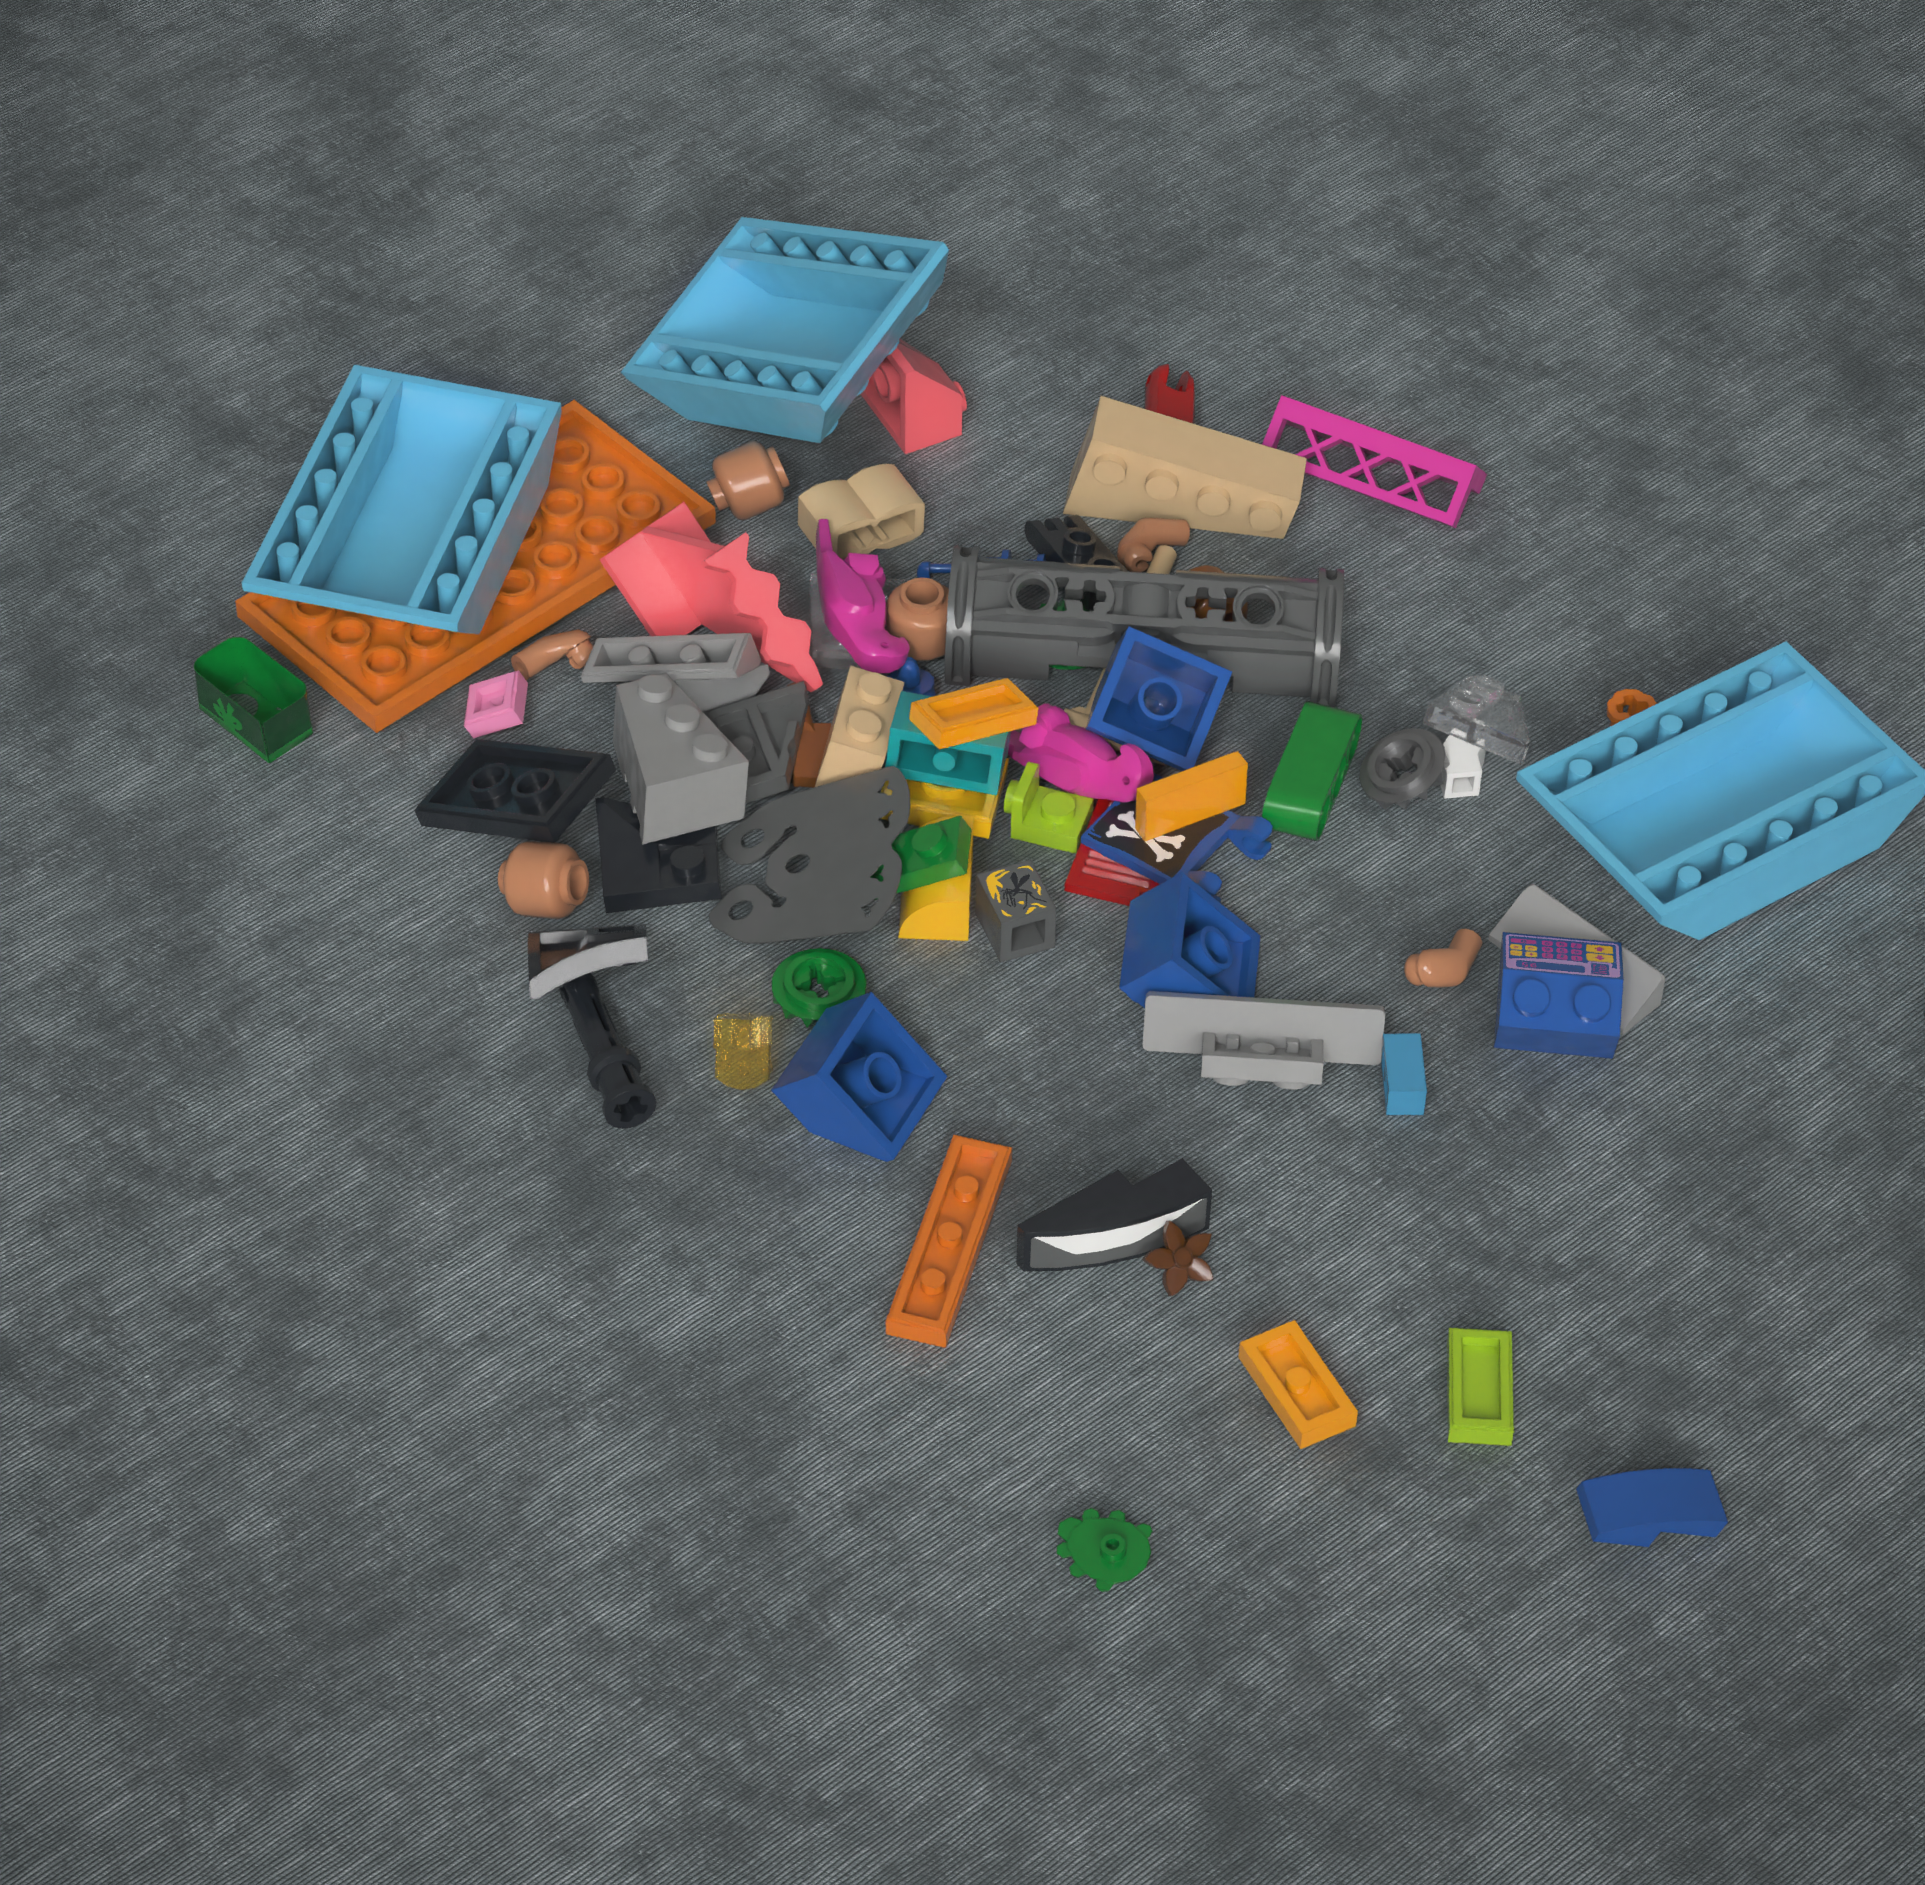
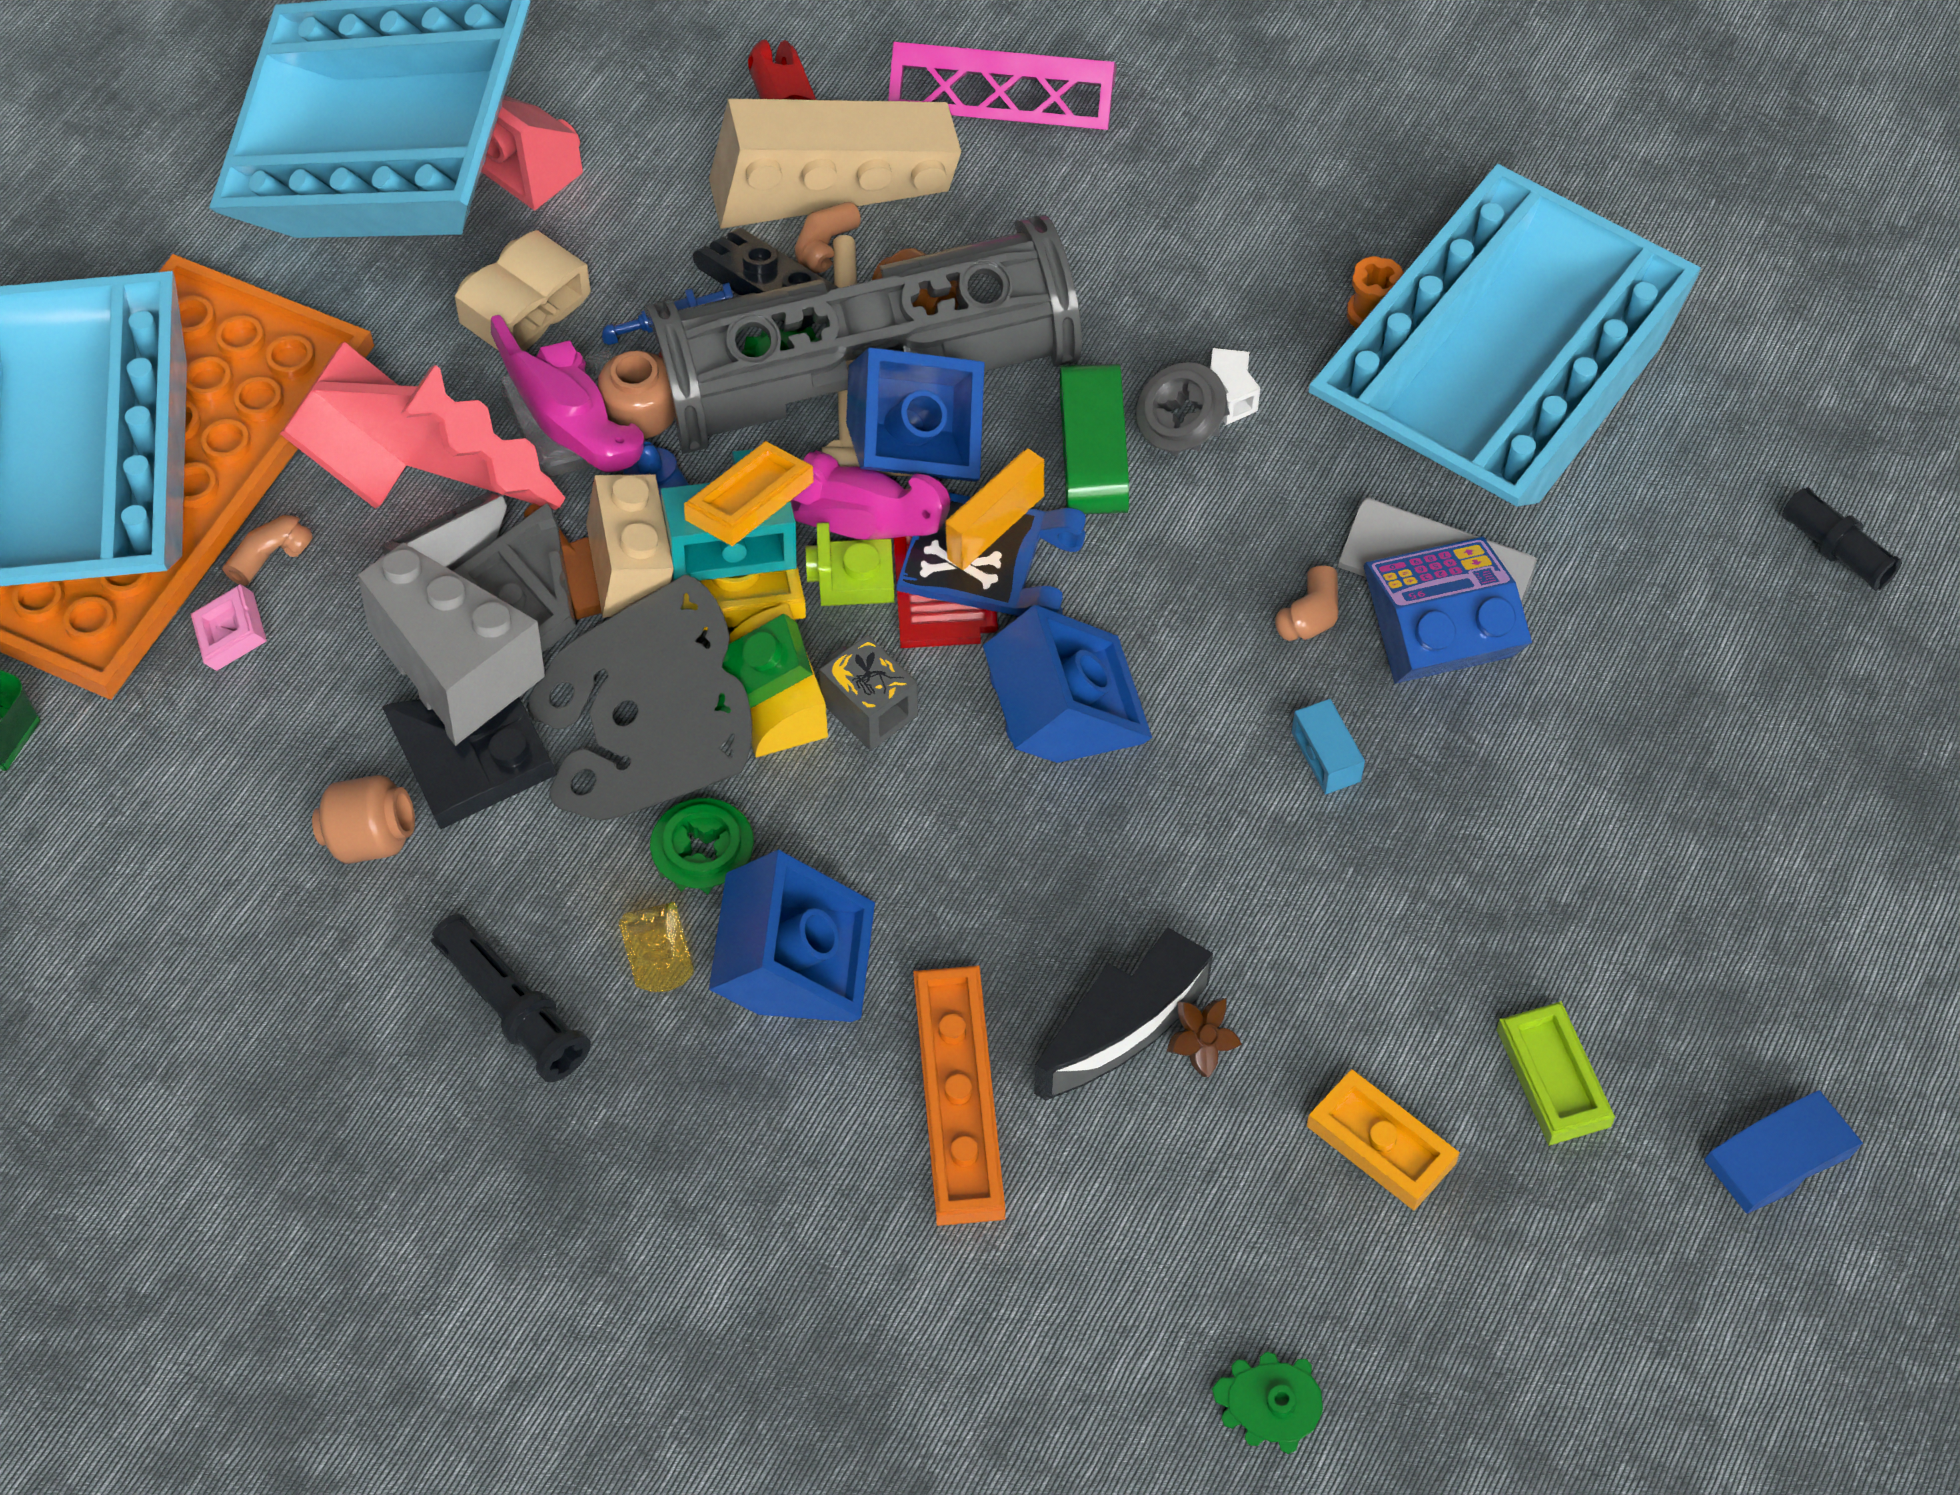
camera: 20 degrees left, 10 degrees up
(515, 790) = (293, 725): black tile -> none
(570, 953) = (443, 894): plate -> none
(677, 655) = (404, 517): light grey slope -> none
(748, 480) = (391, 290): nougat head -> none
(1263, 1036) = (1178, 755): light grey bracket -> none
(1482, 715) = (1239, 329): clear wing -> none

